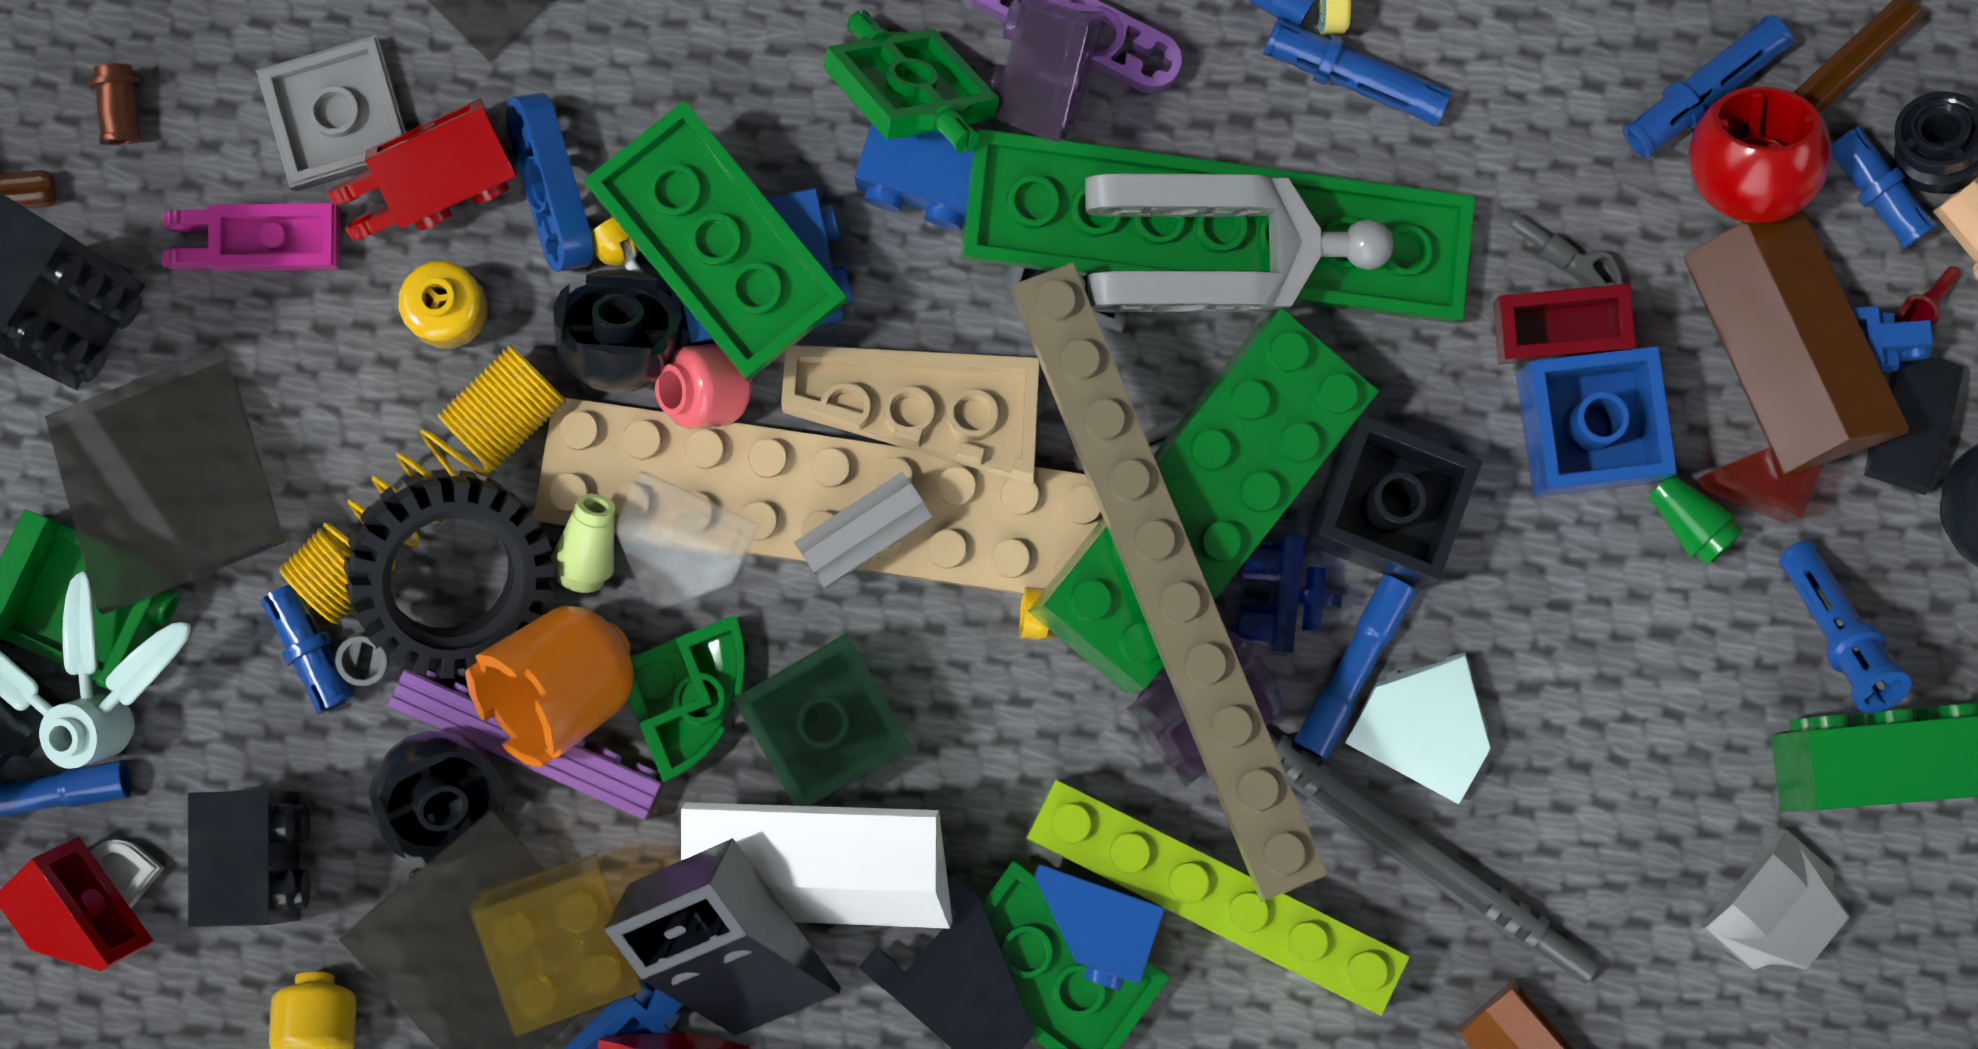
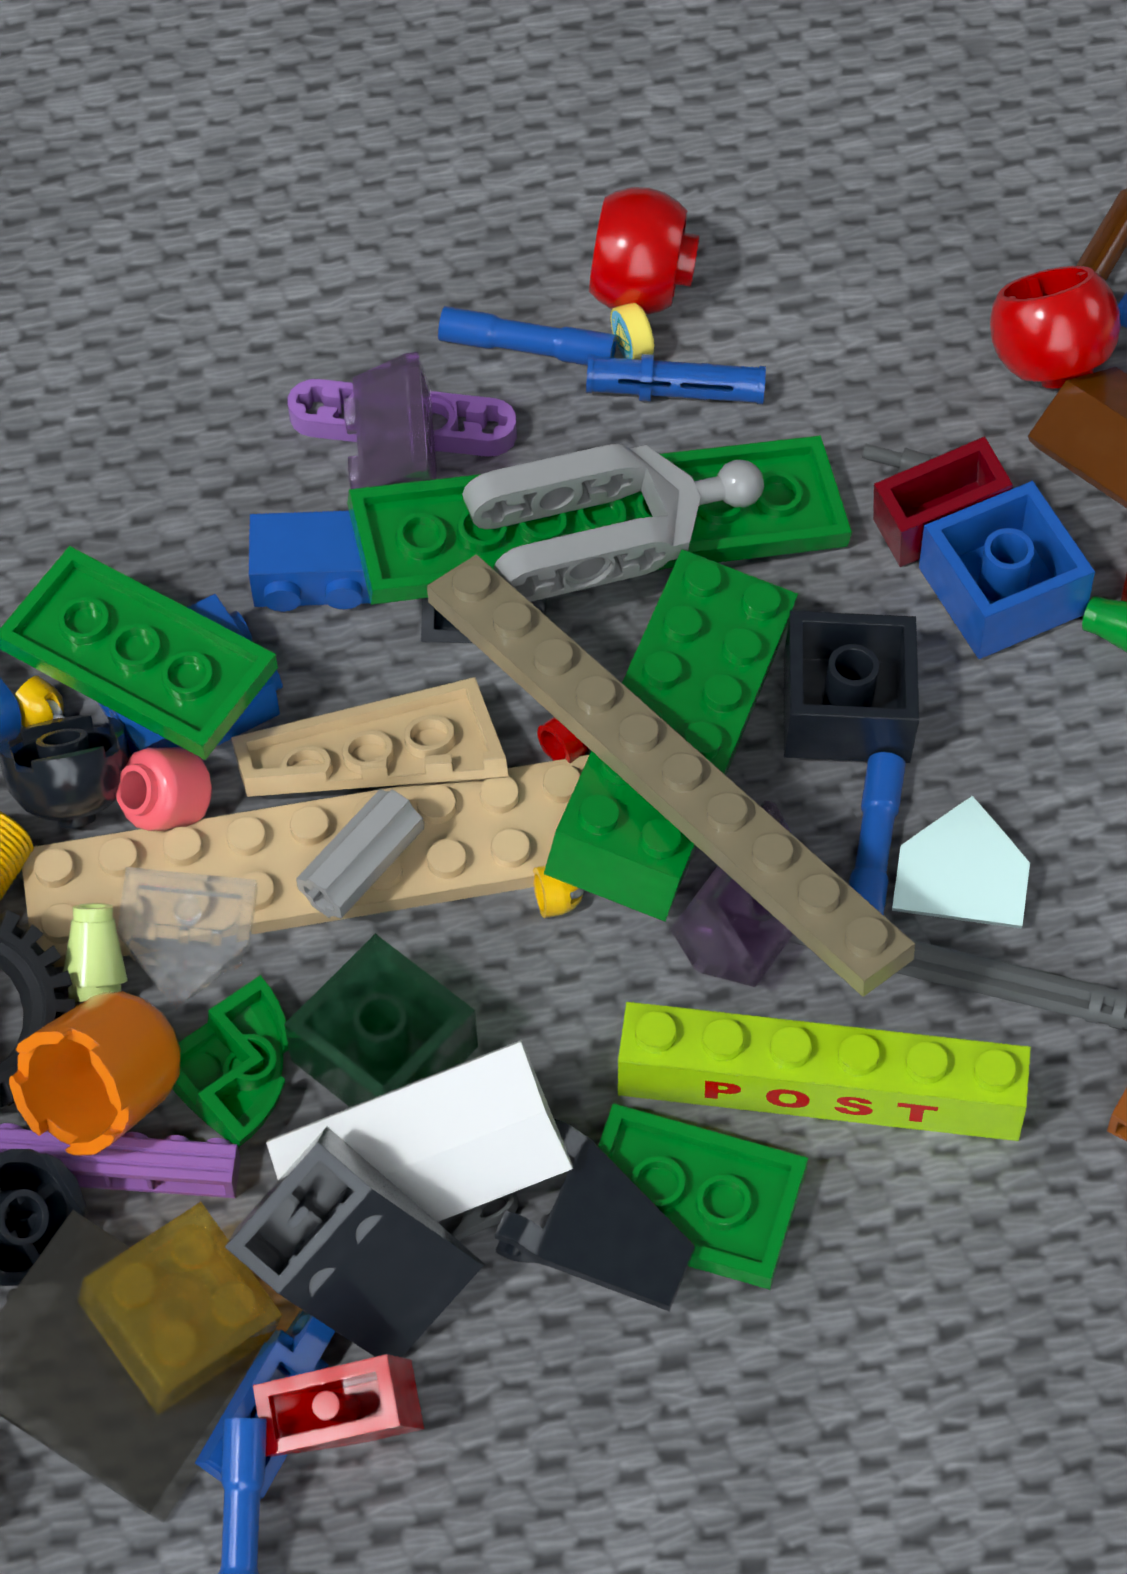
camera: 15 degrees left, 25 degrees down
(910, 83) = (272, 487): green plate -> none
(1101, 926) = (716, 1115): blue slope -> none
(1276, 625) = (772, 778): clear blue hips -> none
(1688, 101) = (957, 343): blue pin -> none

